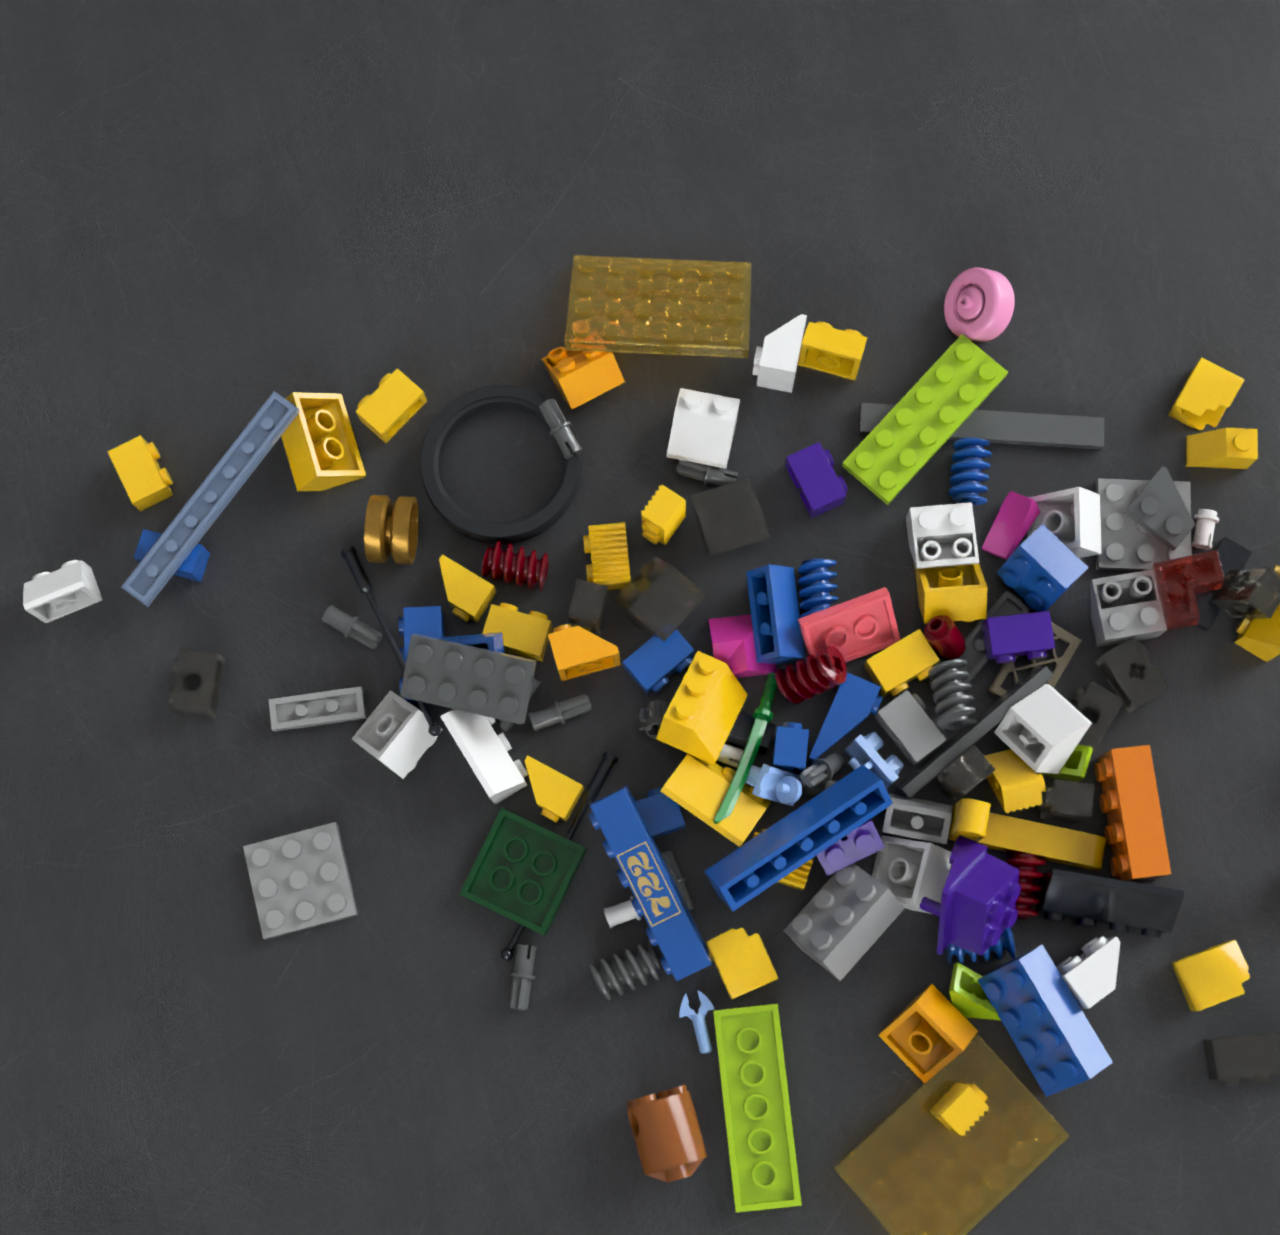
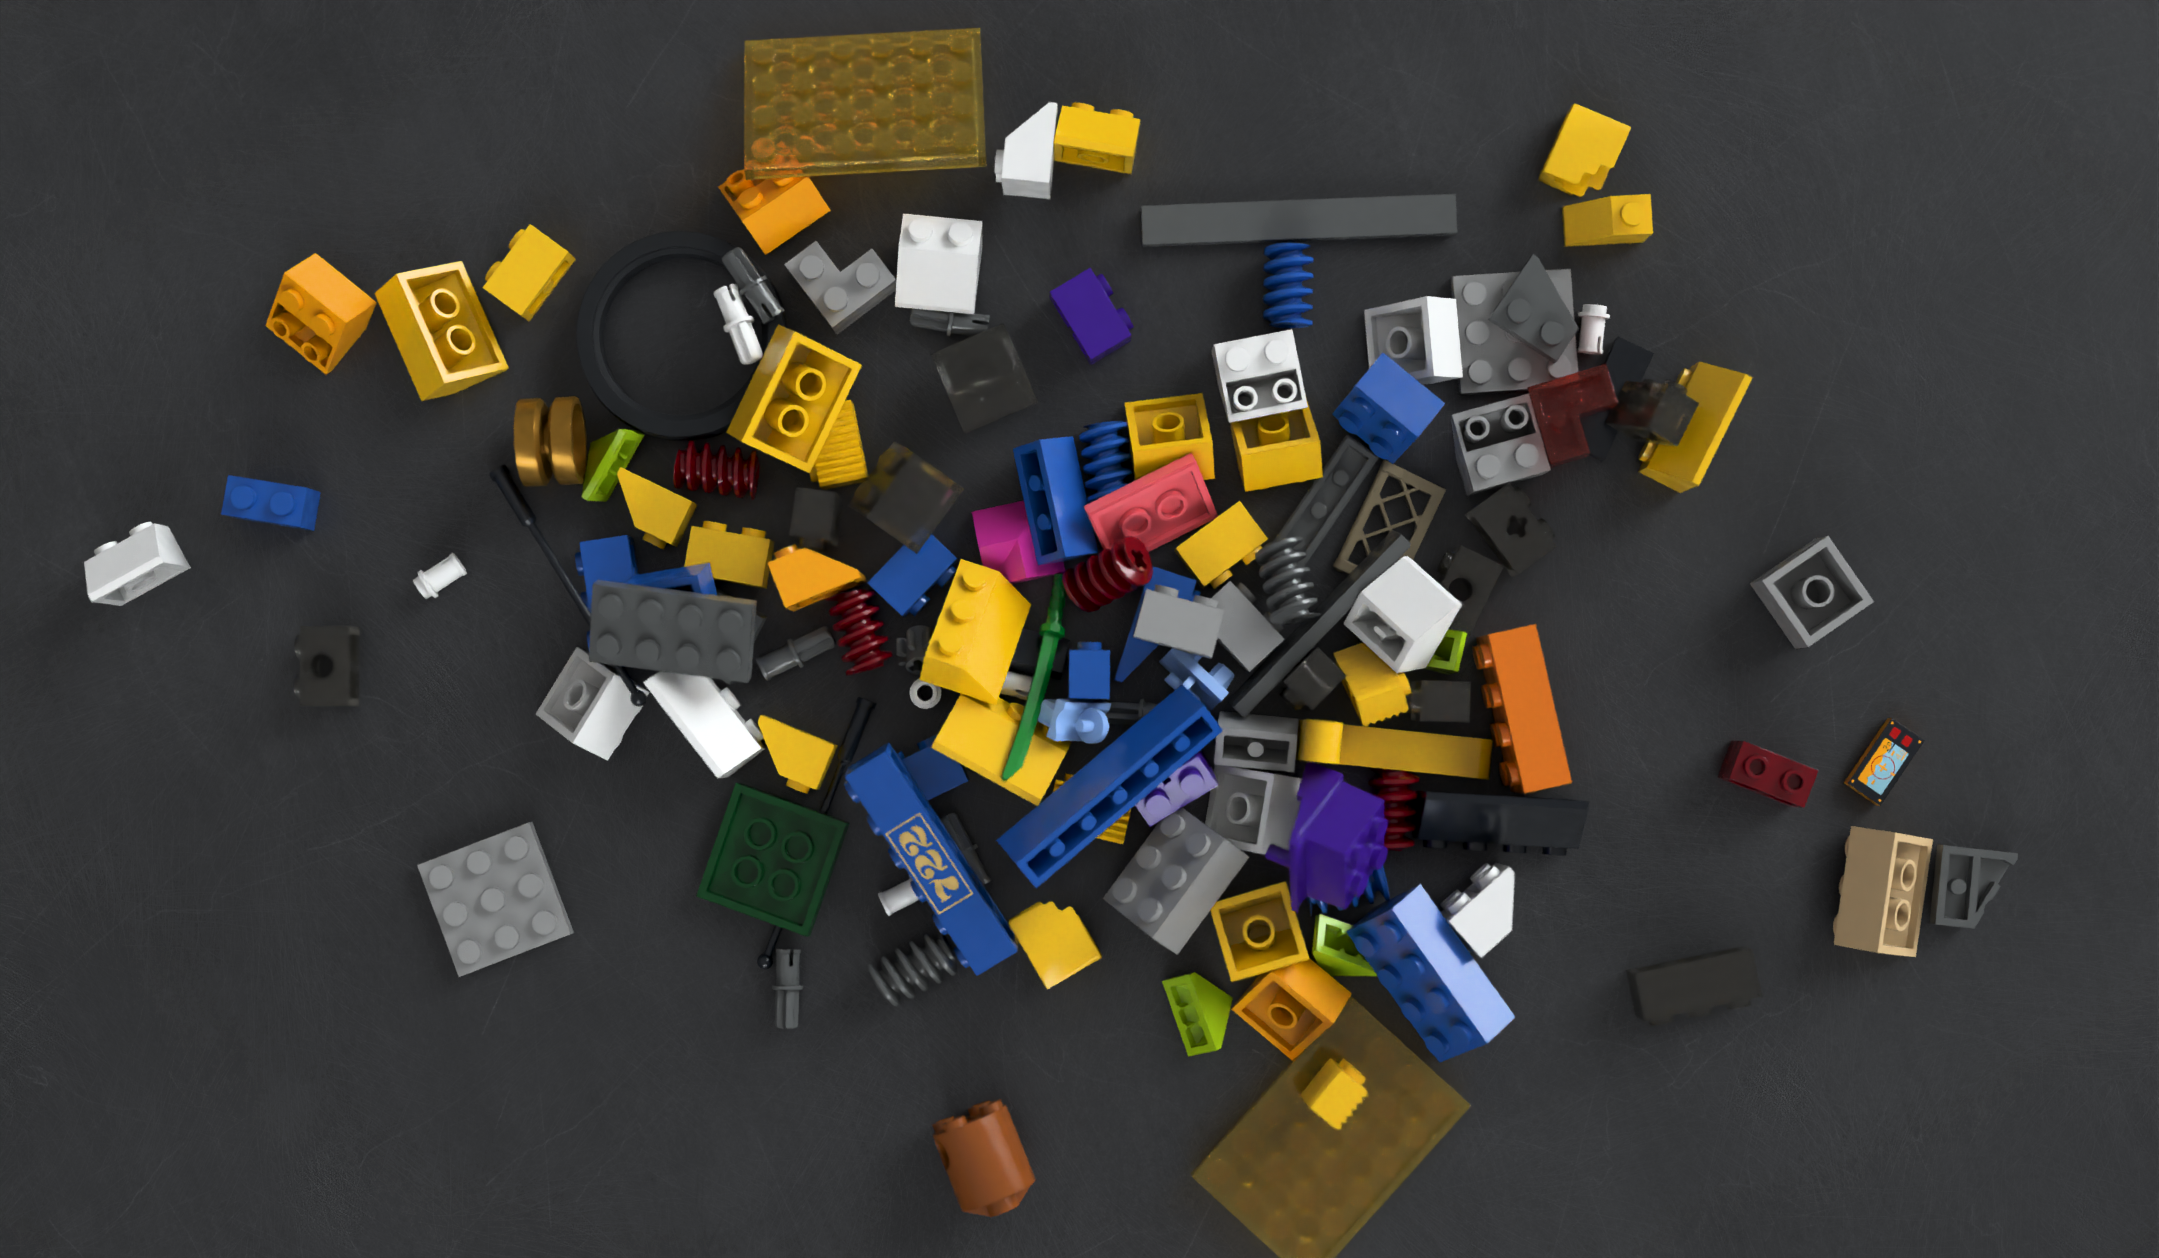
camera: 15 degrees left, 10 degrees up
(141, 473) = (214, 396): yellow brick -> none
(210, 499) = (310, 427): sand blue tile -> none
(223, 414) = (319, 312): none -> light orange slope
(292, 625) = (439, 576): none -> white pin
(317, 708) = (487, 681): light grey plate -> none
(352, 627) = (517, 571): dark grey axle -> none
(430, 550) = (604, 461): none -> lime slope
(546, 456) = (738, 324): none -> white axle
(582, 514) = (793, 398): none -> yellow slope
(611, 700) = (859, 631): none -> dark red piece
(623, 443) = (844, 294): none -> light grey brick
(658, 745) = (917, 700): none -> white pin
(662, 515) = (898, 387): yellow brick -> none
(698, 1021) = (1010, 1015): light blue bar -> none
(757, 1108) = (1090, 1113): lime plate -> none
(822, 770) = (1132, 694): dark grey axle -> none
(851, 1033) = (1199, 1012): none -> lime slope
(865, 715) = (1179, 622): none -> light grey brick
(866, 571) = (1167, 431): none -> yellow slope
(907, 969) = (1258, 932): none -> yellow slope
(924, 419) = (1224, 220): lime plate -> none
(945, 637) = (1272, 507): dark red brick -> none
(979, 304) = (1282, 58): bright pink wheel -> none
(1010, 525) = (1345, 351): dark pink slope -> none
(1018, 635) = (1364, 496): dark purple piece -> none
(1212, 975) = (1631, 894): yellow piece -> none

